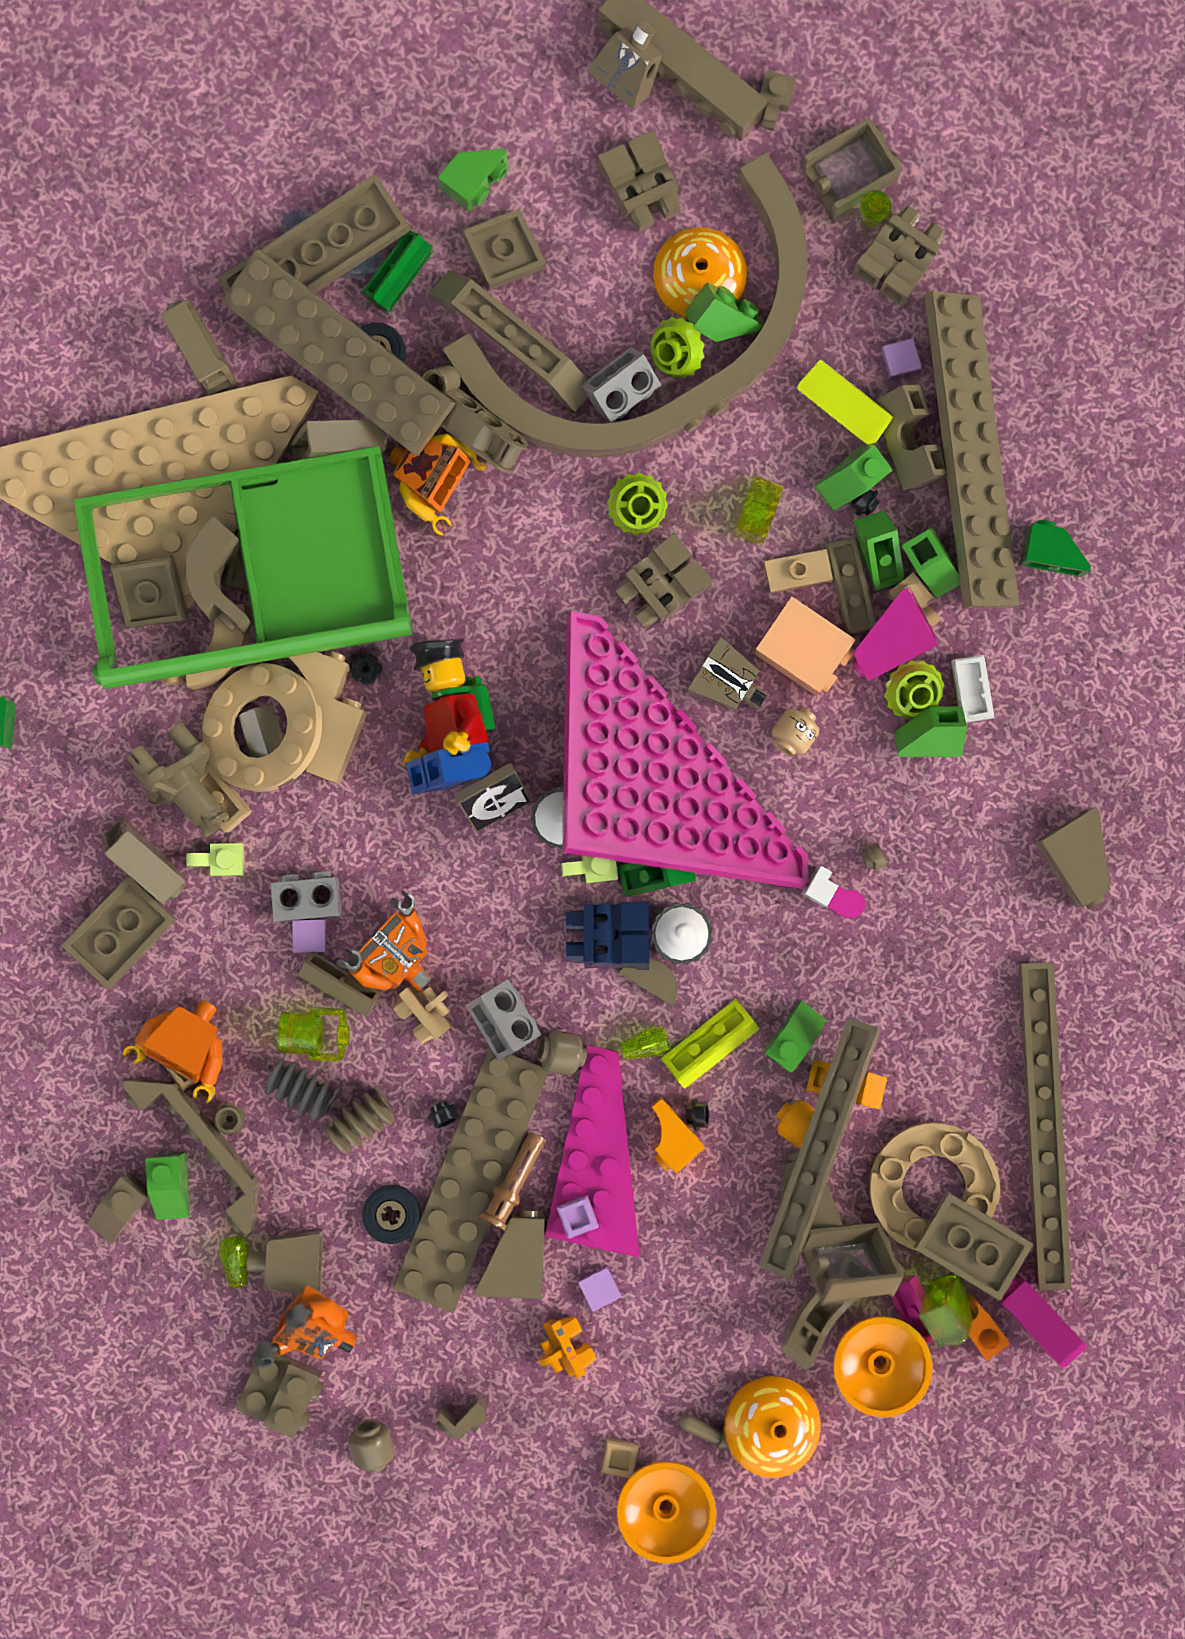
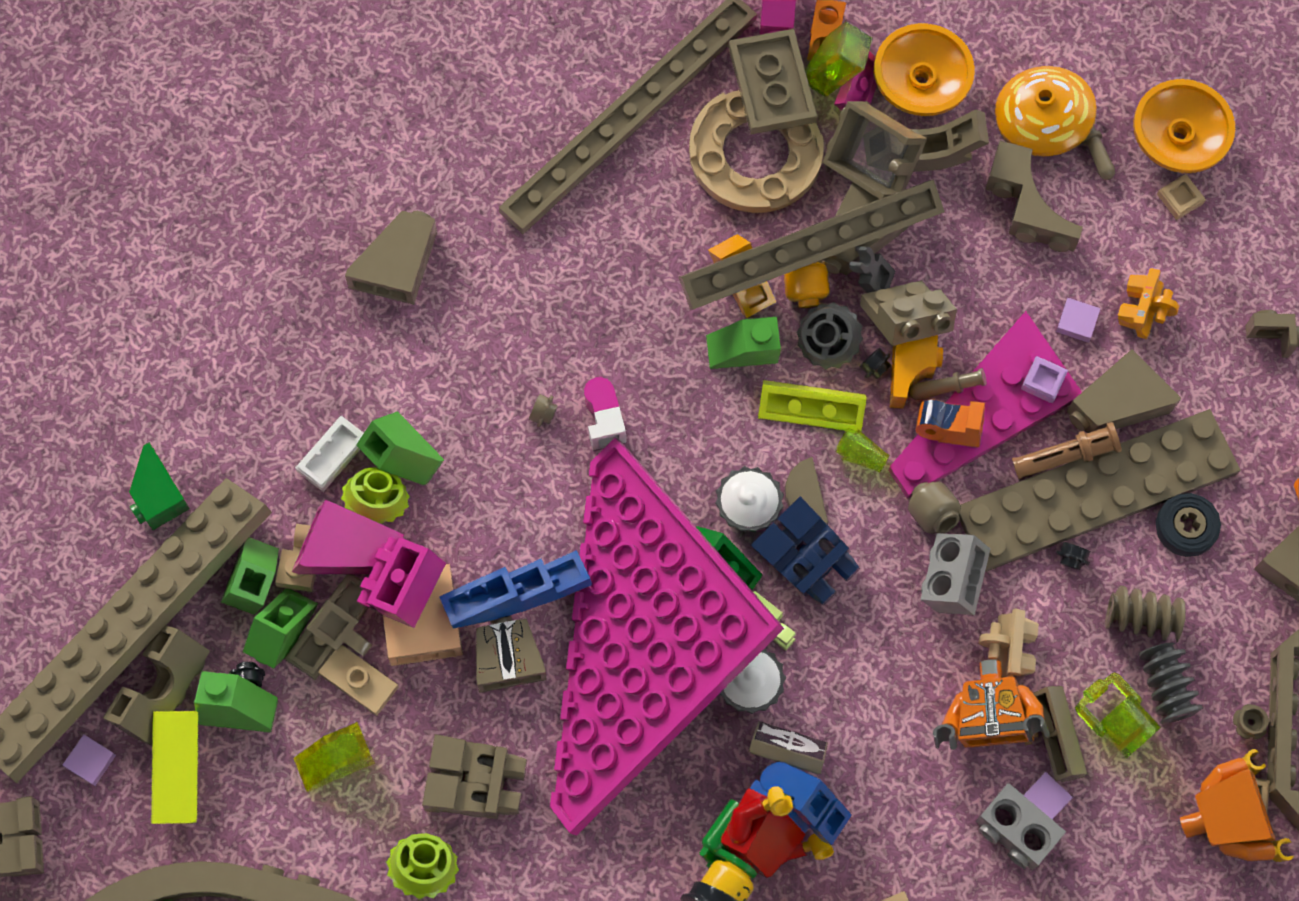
camera: 135 degrees left, 15 degrees down
(606, 1120) = (951, 422): none -> orange leg
(632, 1154) = (940, 386): none -> dark tan piece
(701, 1331) = (1032, 217): none -> dark tan arch
(711, 1170) = (909, 312): none -> dark tan plate
(747, 1112) = (838, 332): none -> dark grey piece
(760, 718) = (514, 592): none -> blue slope
(763, 1176) = (873, 270): none -> dark grey plate
(795, 731) = (498, 552): tan head -> none
(833, 644) = (401, 580): none -> dark pink brick
(844, 583) = (336, 626): none -> dark tan plate

